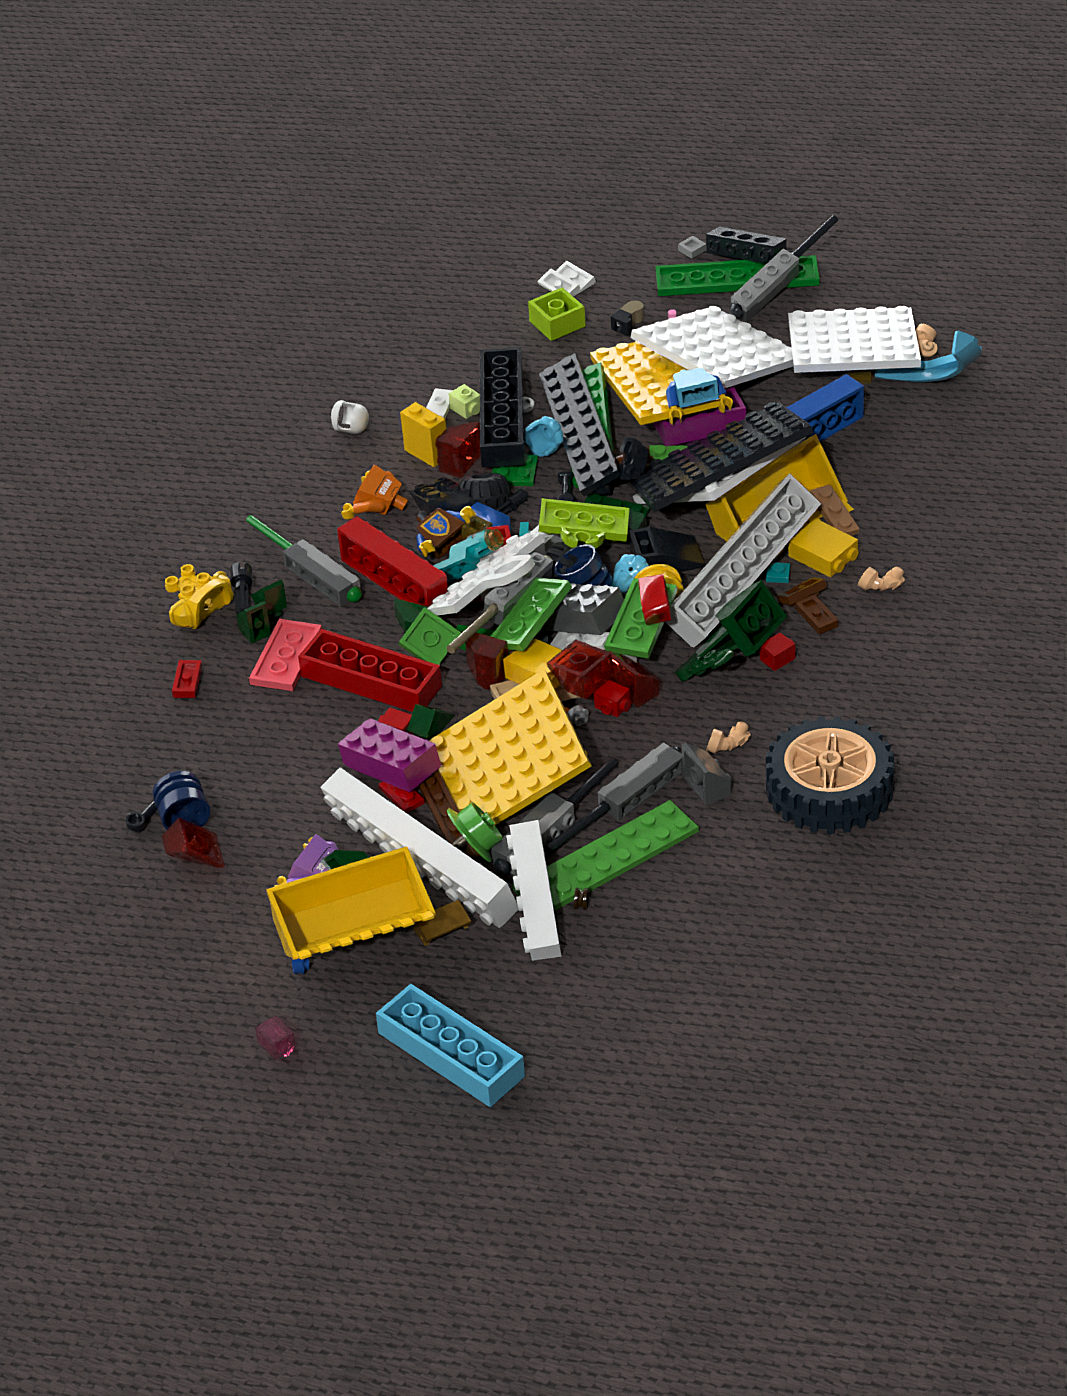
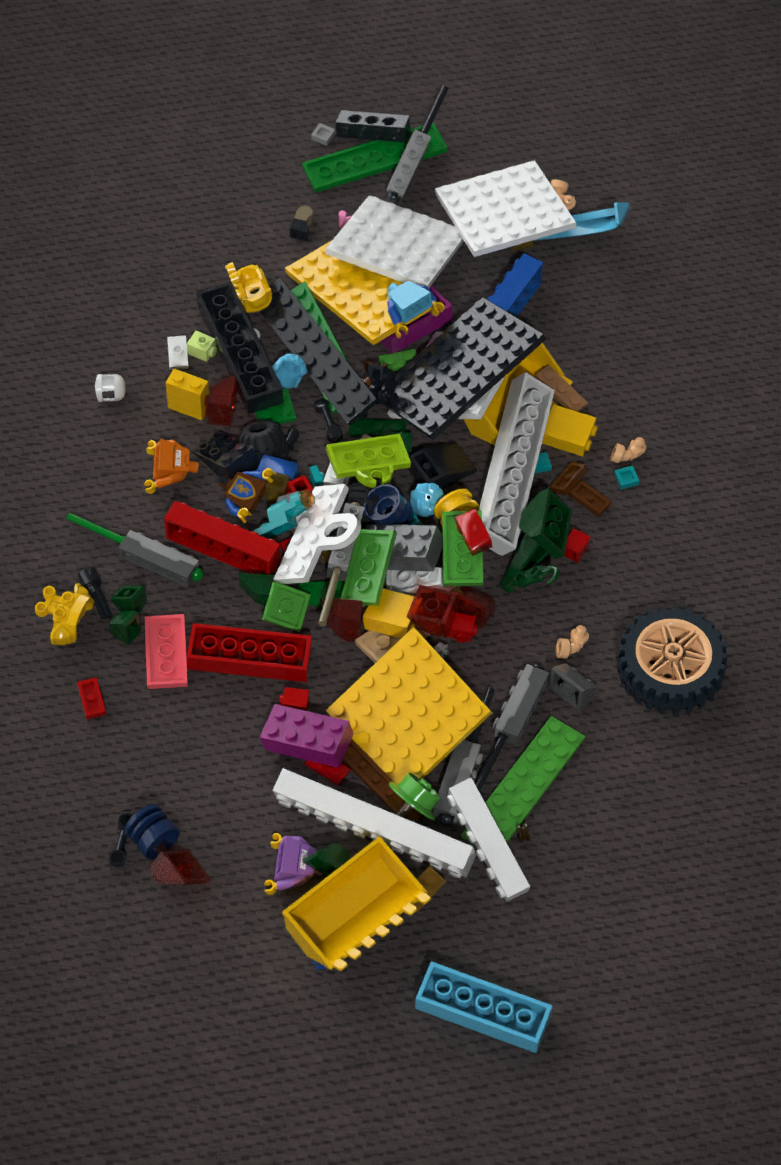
camera: 25 degrees left, 15 degrees up
(275, 1037) = (336, 1040): clear pink brick -> none
(428, 721) = (320, 690): dark green slope -> none
(539, 359) = (247, 280): none -> yellow piece
(556, 313) = (241, 234): lime brick -> none
(567, 276) = (229, 193): white slope -> none
(868, 603) = (626, 477): none -> teal plate

